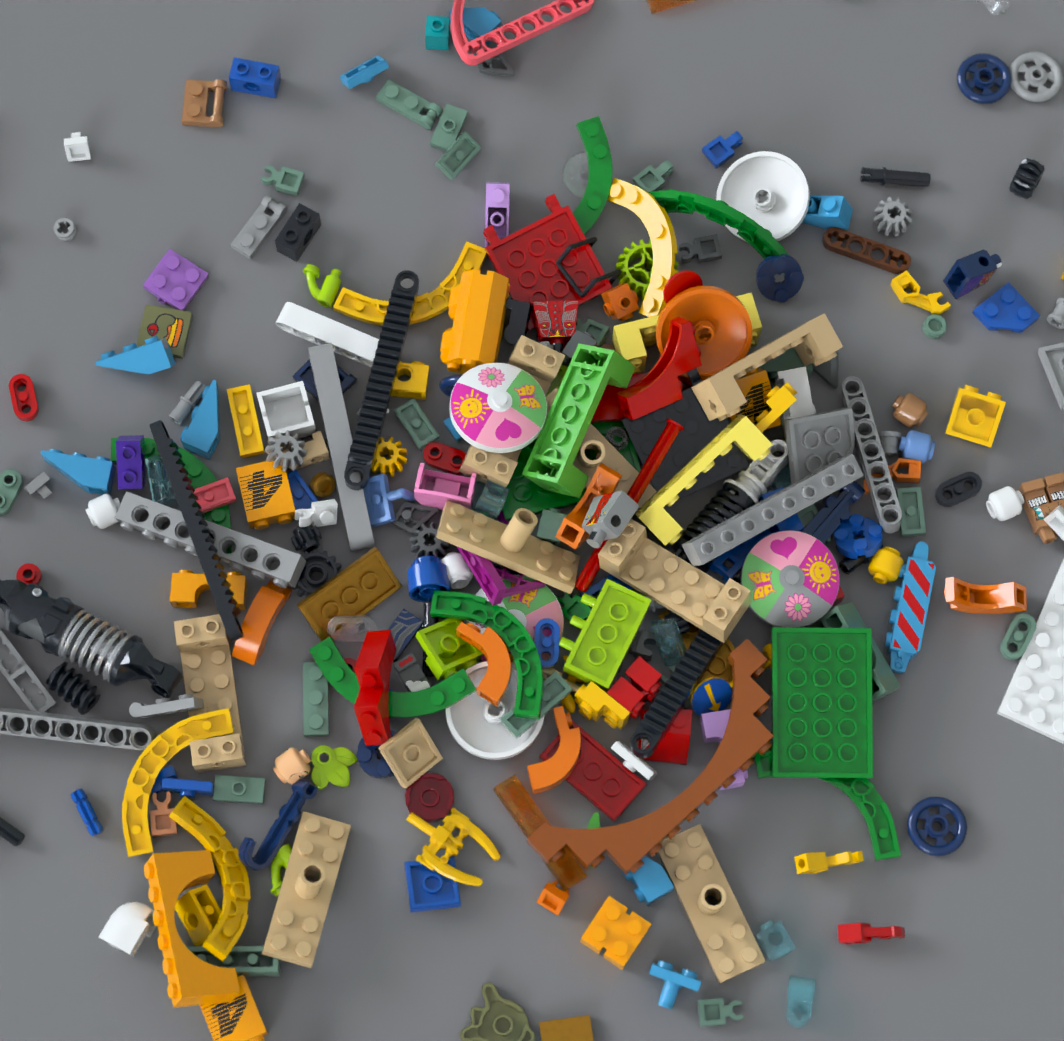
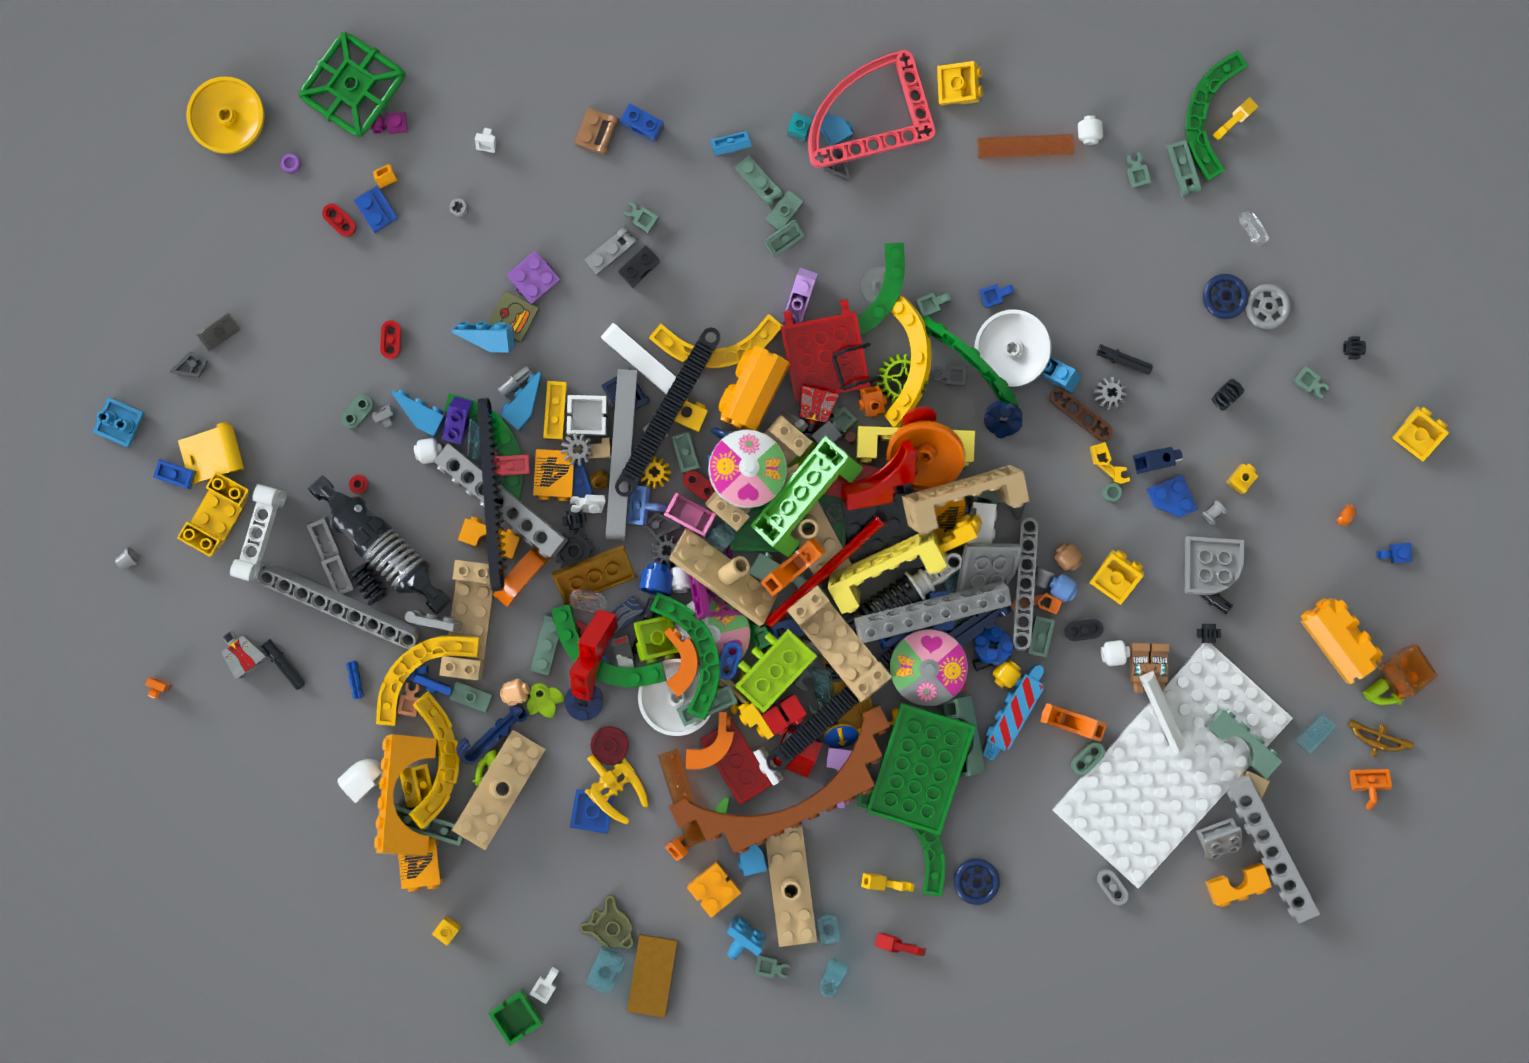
camera: 15 degrees right, 15 degrees up
(330, 287) = (649, 322): lime plant -> none
(410, 753) = (604, 711): tan plate -> none
(518, 320) = (788, 395): black leg -> none
(608, 517) = (803, 584): light grey torso -> none

